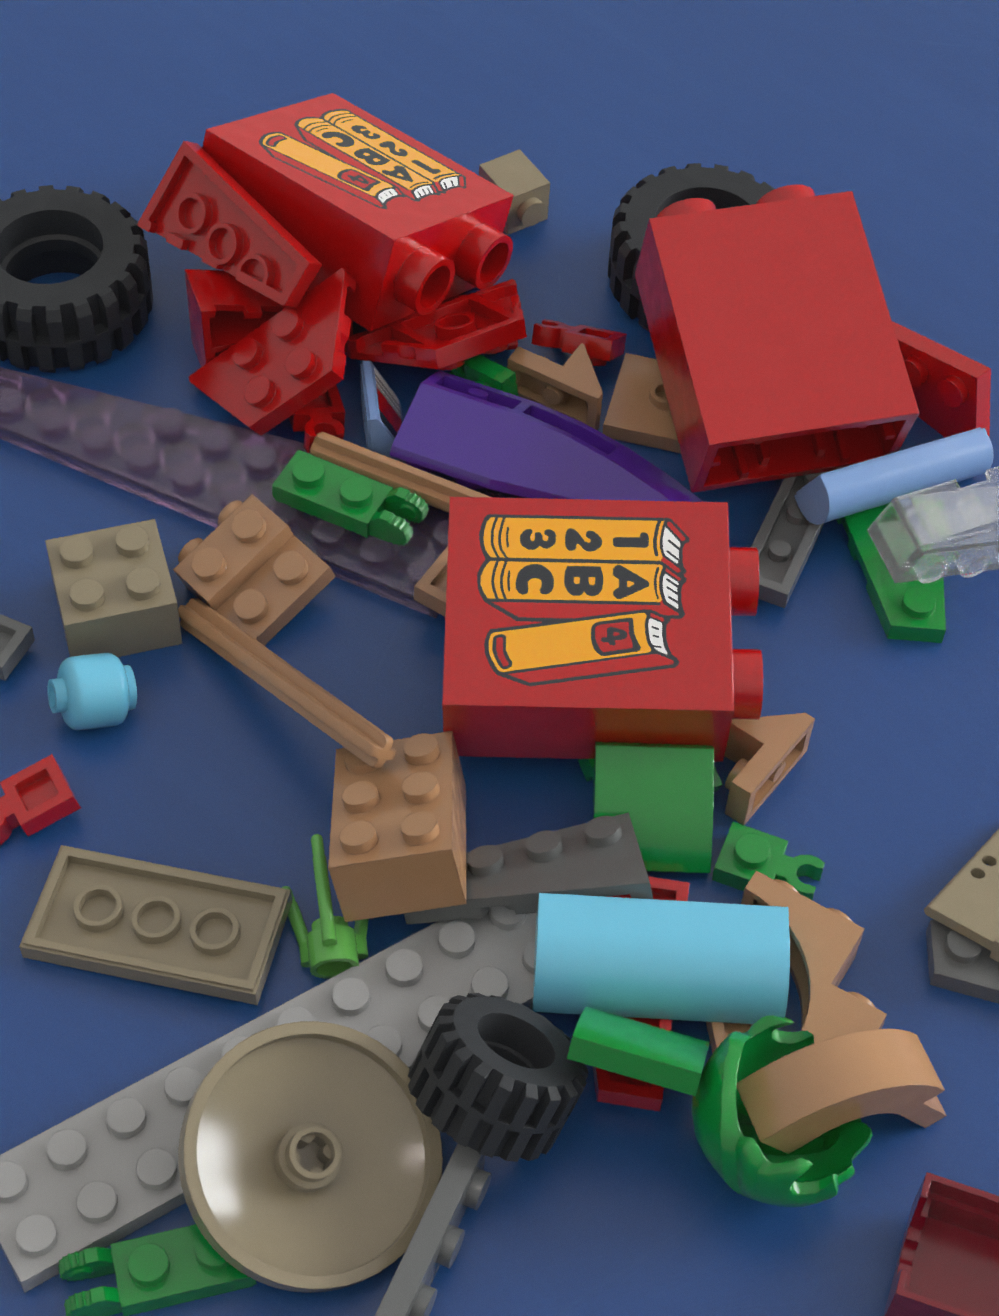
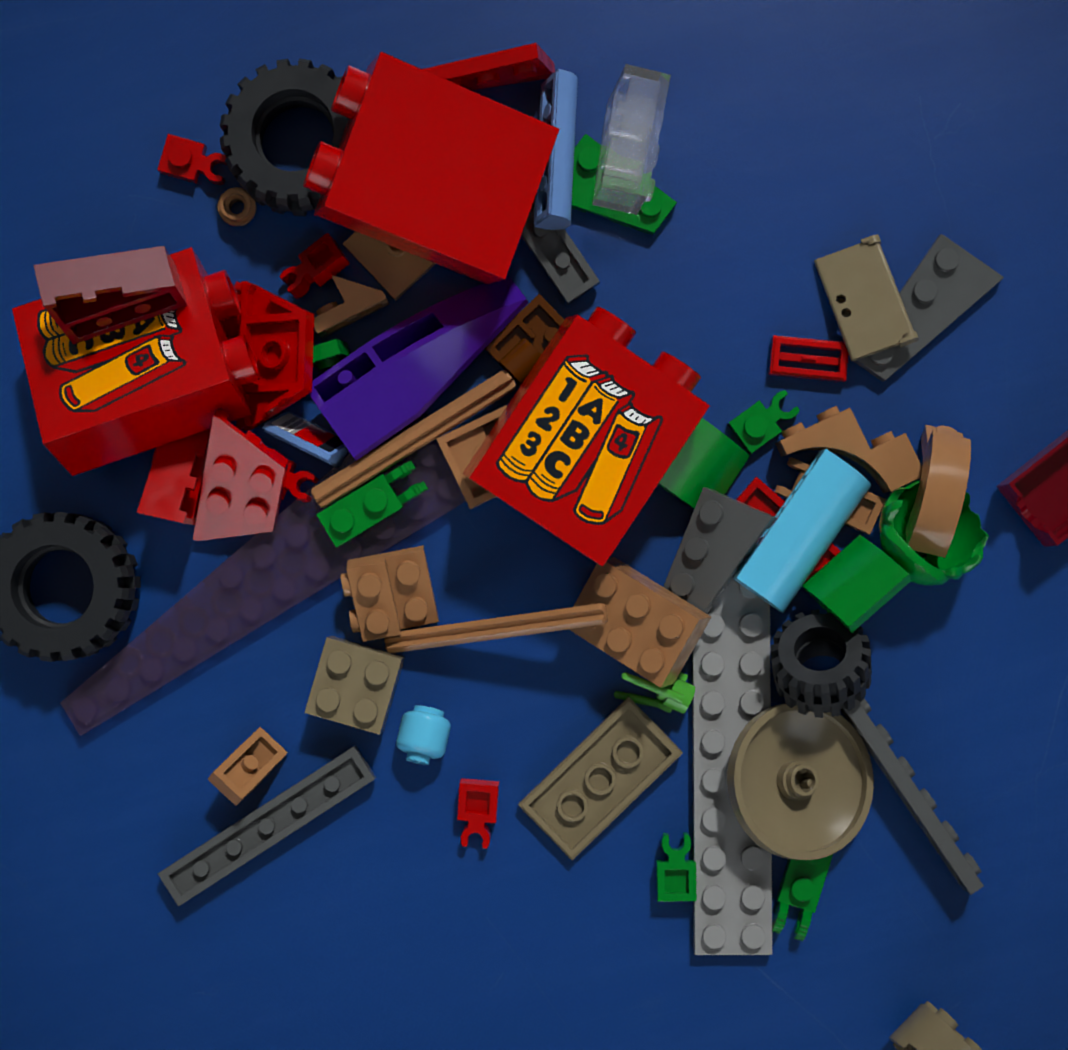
camera: 55 degrees left, 35 degrees up
(75, 1084) = (676, 875): none -> green plate
(219, 221) = (112, 469): red wing -> none
(410, 120) = (109, 290): none -> dark red wedge
(527, 184) = (152, 221): dark tan brick -> none
(587, 253) = (232, 196): none -> medium nougat plate
(597, 198) = (187, 160): none -> red plate
(763, 757) = (711, 387): medium nougat slope -> none
(869, 887) = (776, 356): none -> red tile

